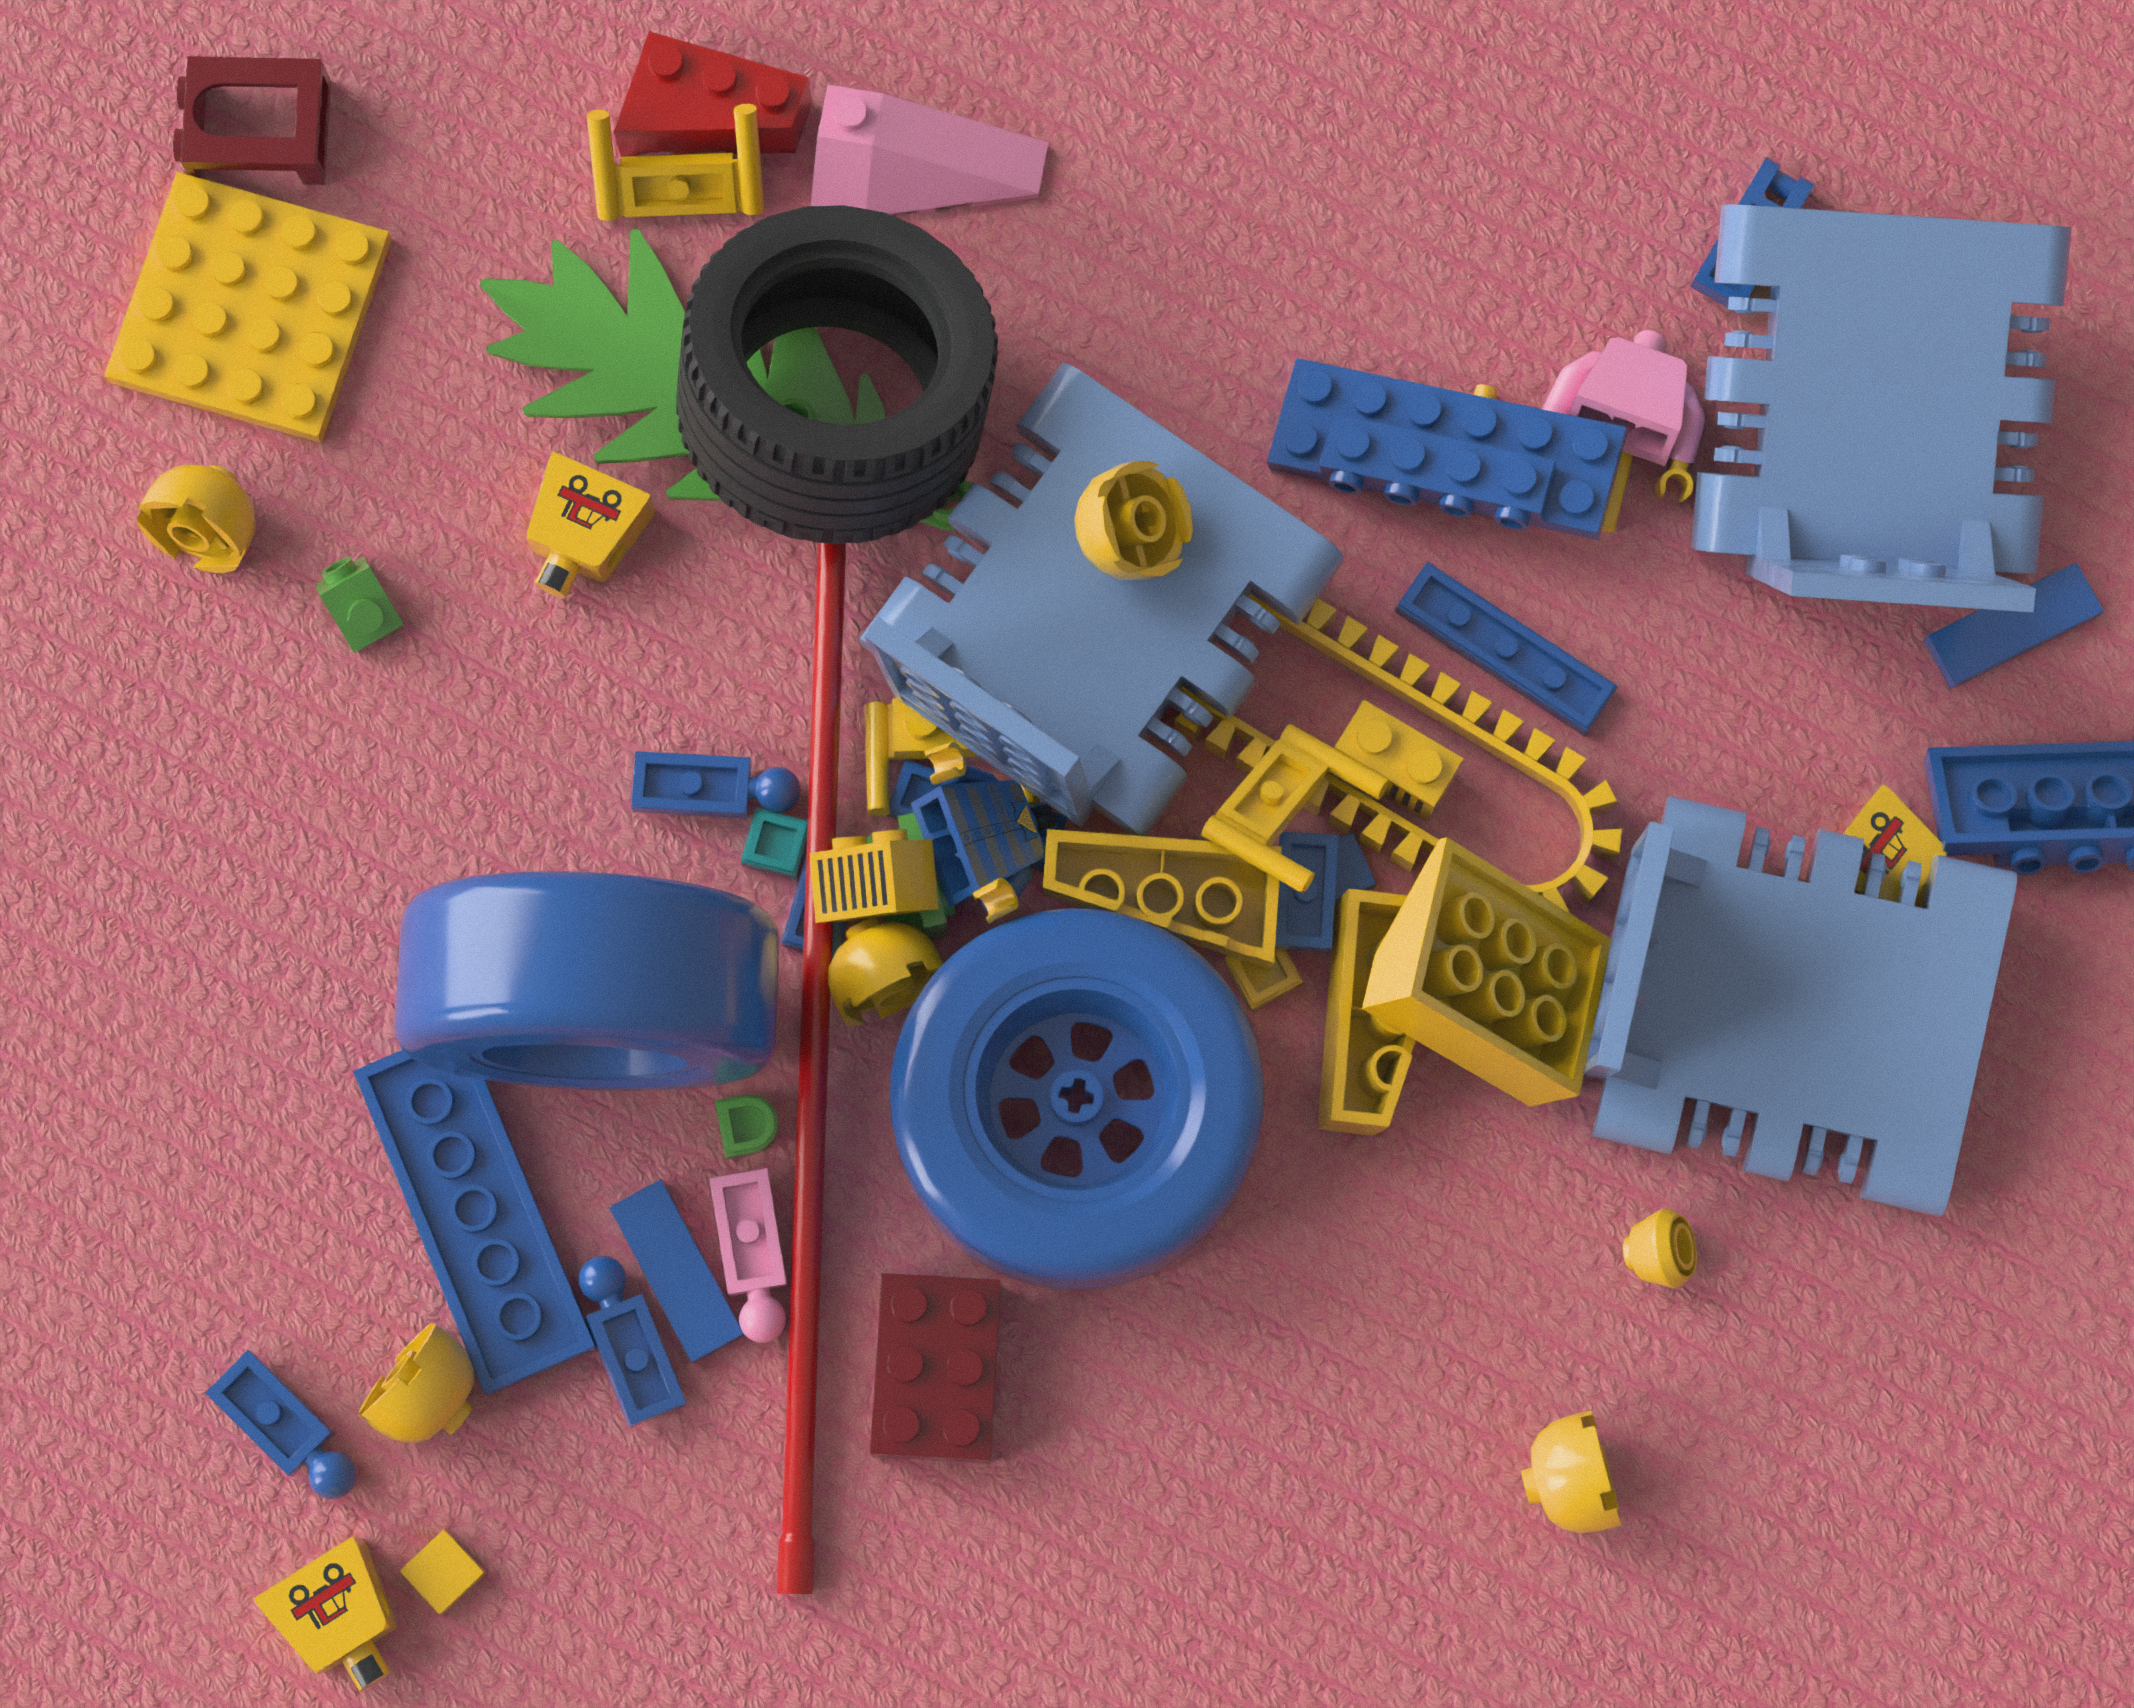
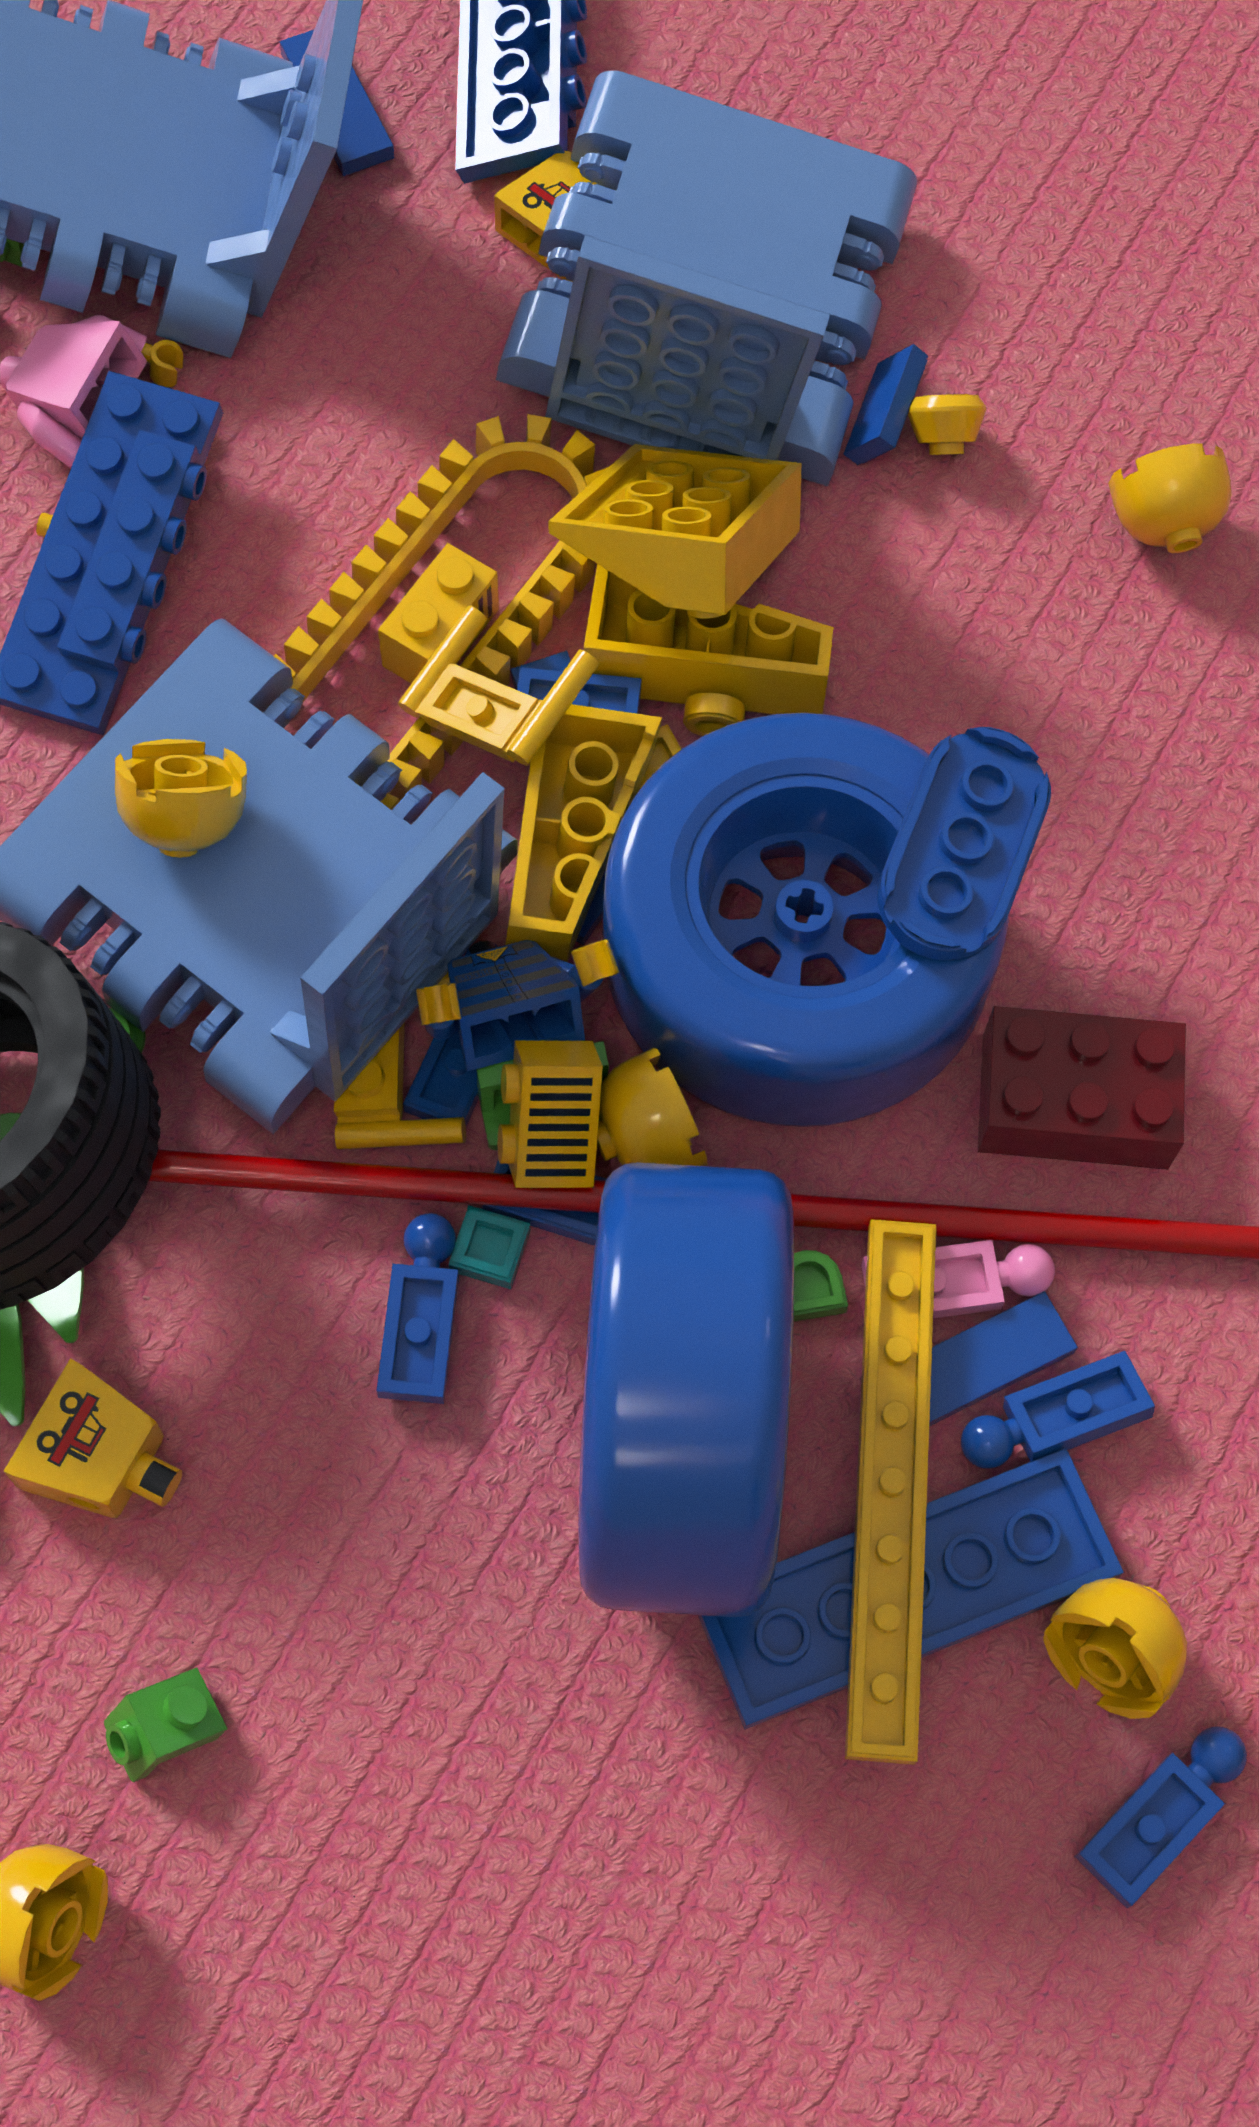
camera: 90 degrees left, 10 degrees down
(556, 1190) = (891, 1495): none -> yellow tile
(1120, 1229) = (963, 844): none -> blue tile
(1310, 1024) = (711, 712): none -> yellow tile
(1505, 648) = (321, 525): blue tile -> none
(1676, 1189) = (886, 405): none -> blue tile

